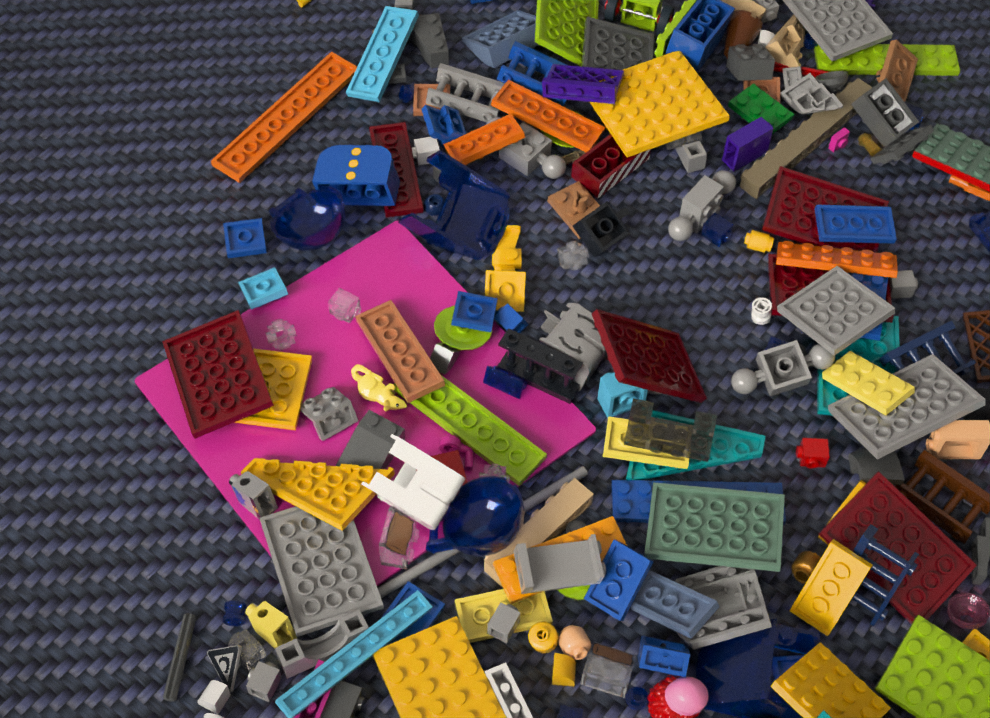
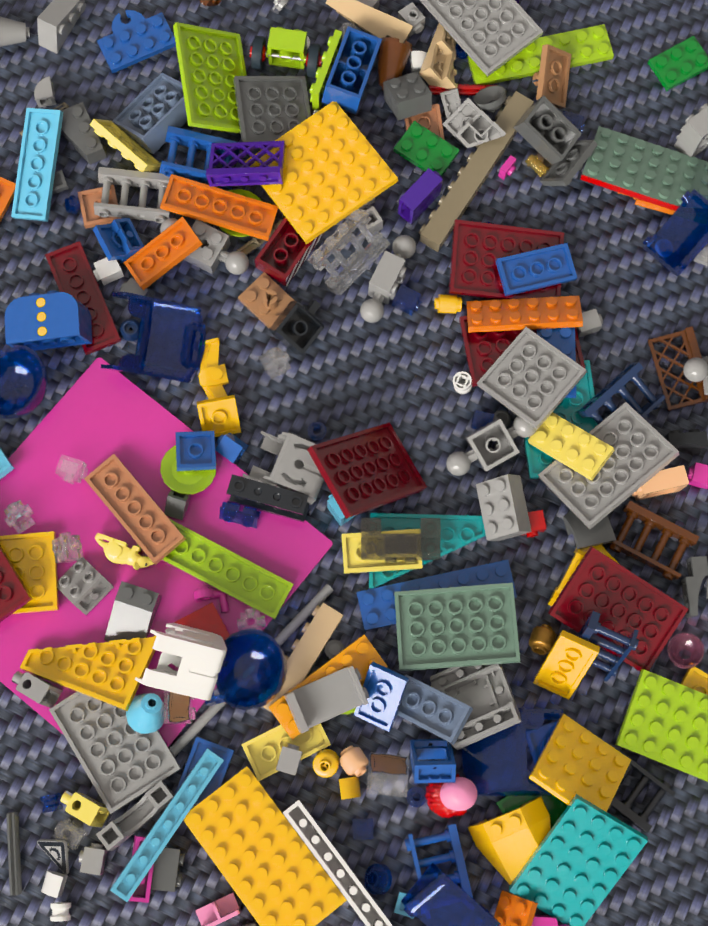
camera: 15 degrees left, 20 degrees up
(321, 373) = (67, 548): none -> clear brick
(362, 535) = (146, 713): none -> medium azure cone
(468, 53) = (130, 149): none -> light yellow plate
(672, 188) = (358, 261): none -> clear fence
(785, 428) = (503, 507): none -> light grey brick

